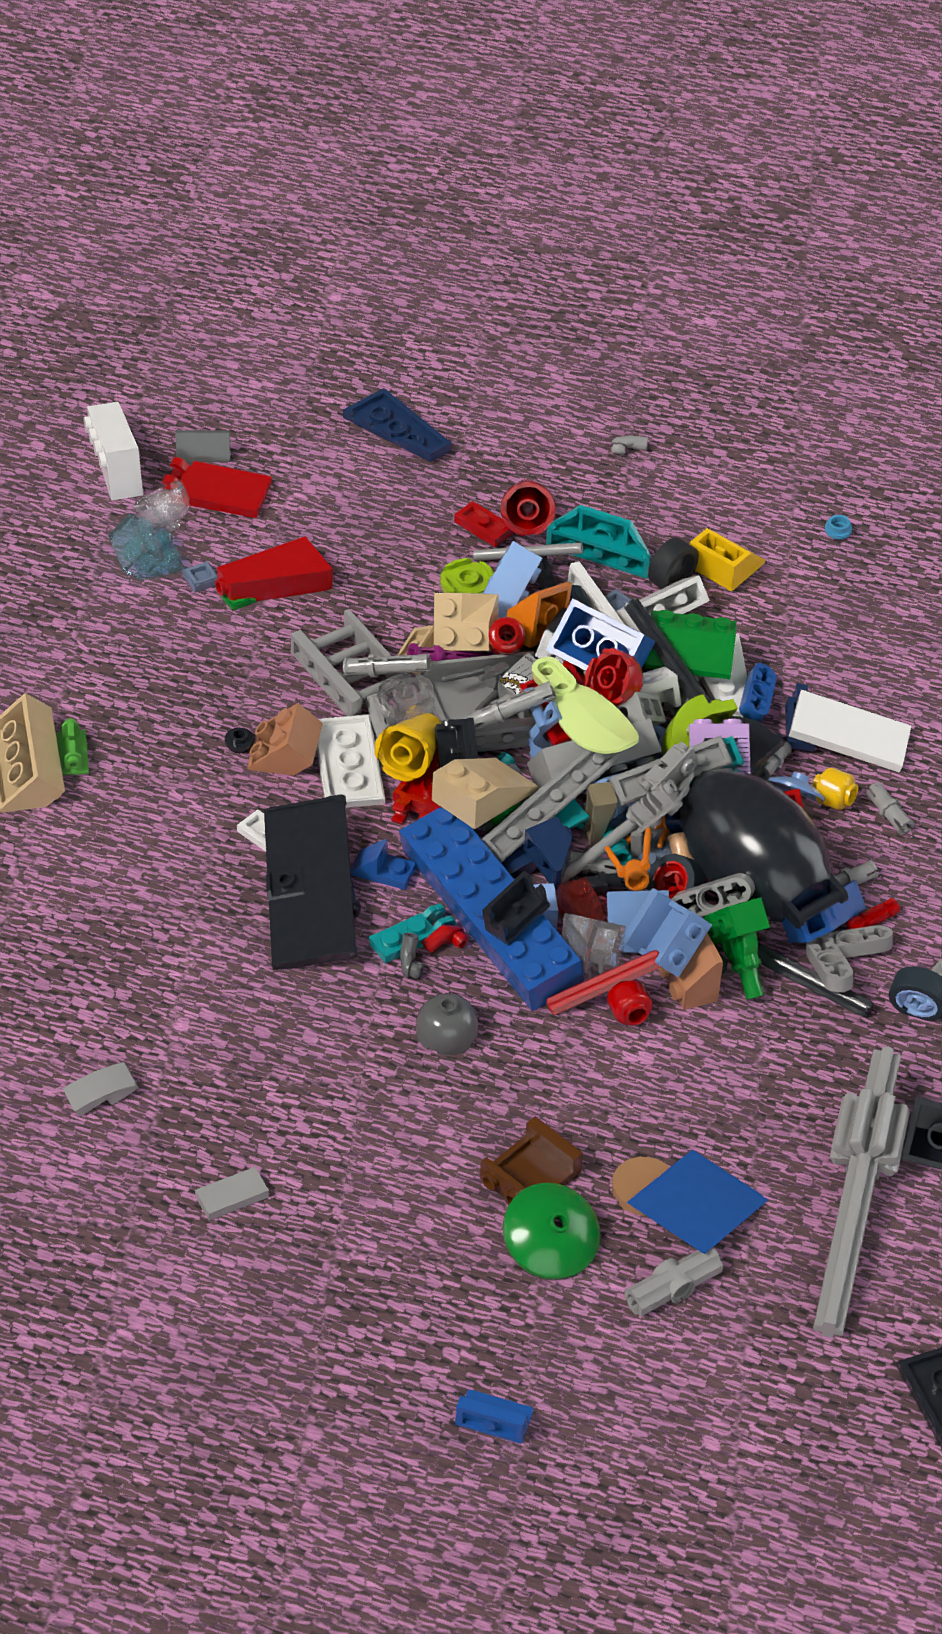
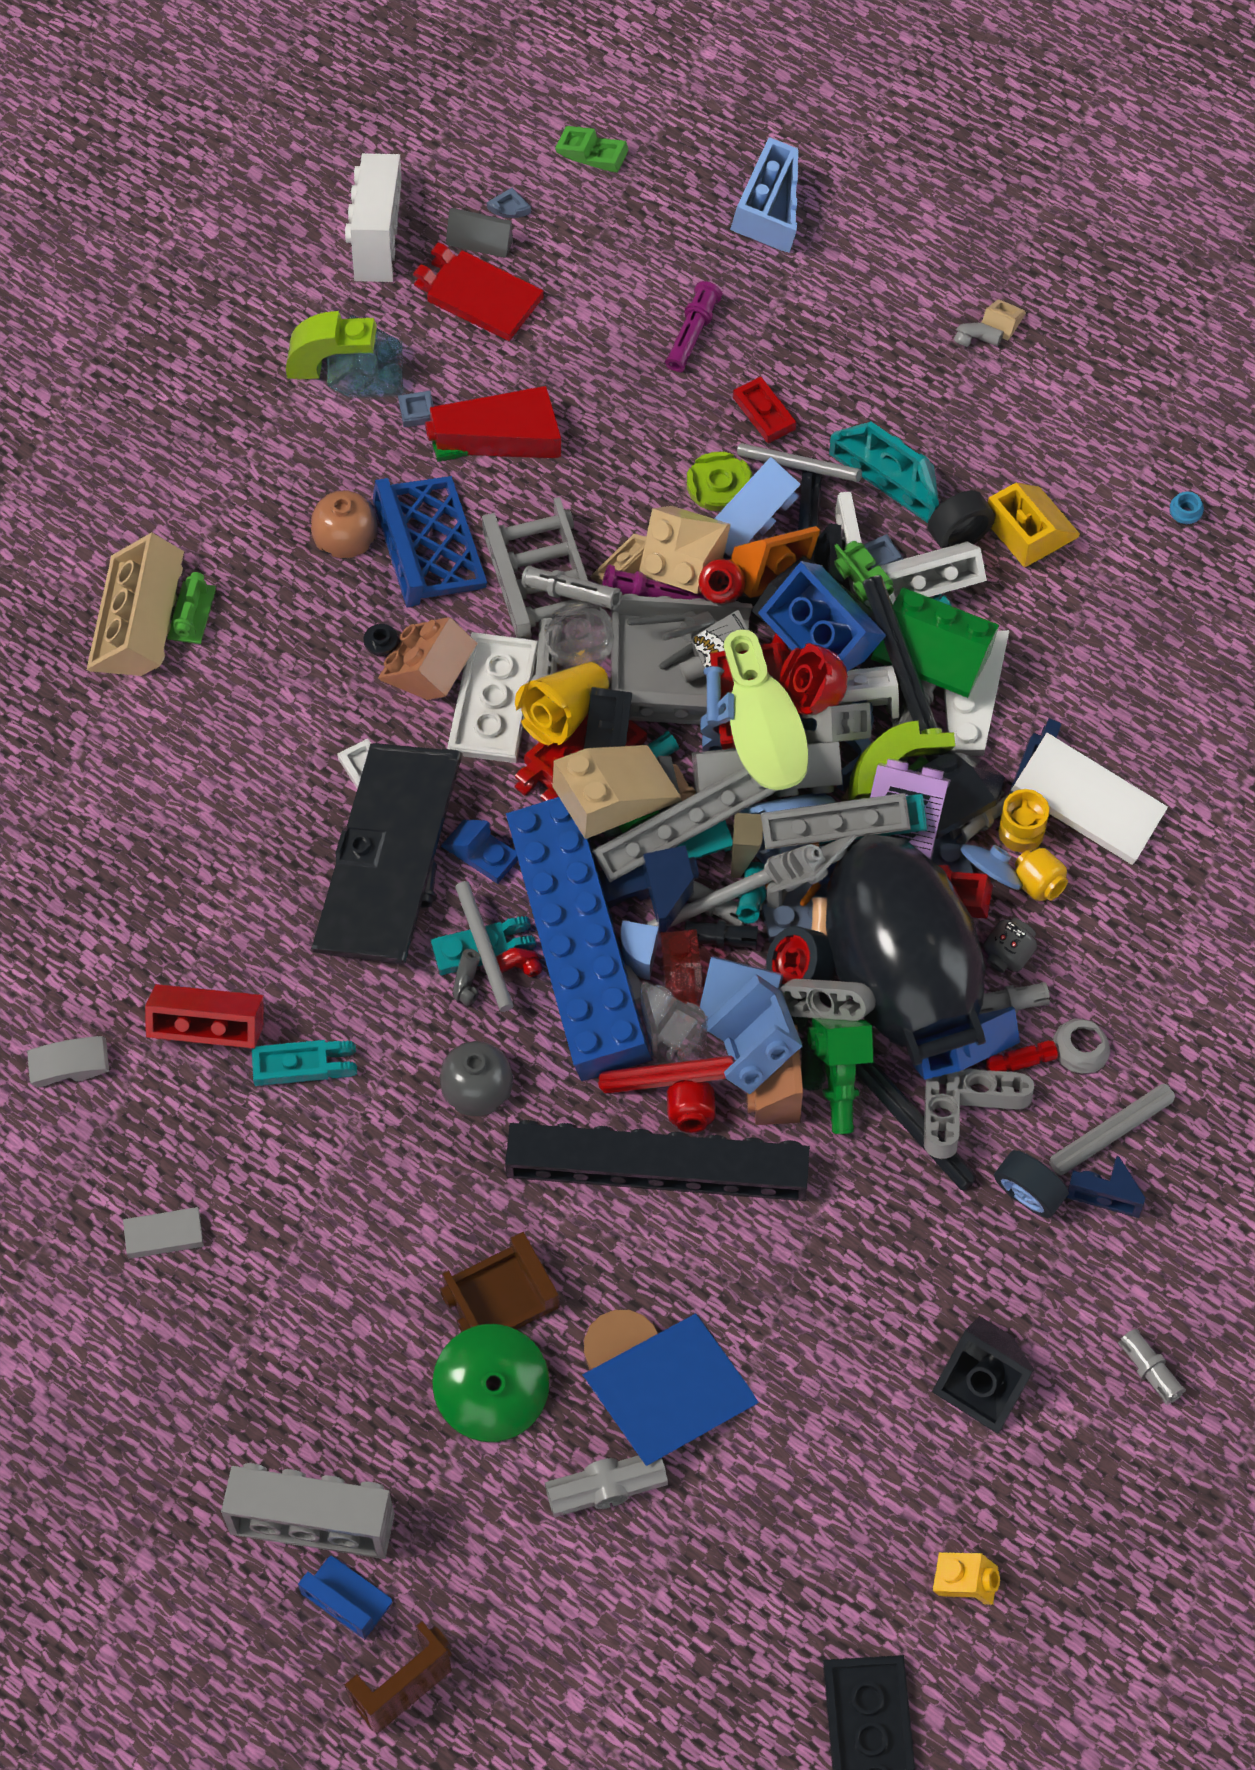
camera: 20 degrees right, 15 degrees up
(110, 533) = (326, 336): none -> lime arch
(165, 506) = (401, 309): clear cylinder -> none
(175, 665) = (344, 524): none -> nougat cylinder
(206, 1027) = (204, 1016): none -> red brick
(219, 422) = (510, 204): none -> sand blue tile
(231, 670) = (403, 550): none -> blue fence
(262, 375) = (584, 147): none -> bright green slope
(299, 1045) = (301, 1062): none -> teal hinge
(397, 423) = (714, 249): dark blue wing -> none
(403, 471) = (697, 315): none -> magenta pin
(417, 928) = (484, 946): none -> light grey bar
(430, 382) = (770, 199): none -> light blue wedge
(444, 1353) = (308, 1510): none -> light grey brick
(515, 909) = (589, 961): black hinge -> none
(518, 703) = (671, 687): light grey pin -> none
(528, 508) = (816, 402): red cone -> none
(557, 1475) = (406, 1685): none -> reddish brown panel
(607, 604) = (854, 564): none -> bright green hinge
(619, 1048) = (657, 1161): none -> black brick
(635, 871) = (750, 941): orange plant -> none
(644, 429) = (1003, 317): none -> tan slope
(679, 762) = (843, 820): light grey hinge -> none
(758, 692) = (986, 725): blue beam -> none
(807, 752) = (1023, 820): none -> yellow wheel
(837, 837) = (1010, 945): none -> dark grey head
(869, 1143) = (893, 1372): light grey axle -> none
(890, 808) = (1099, 915): light grey pin -> none
(914, 908) = (1077, 1060): none -> light grey piece

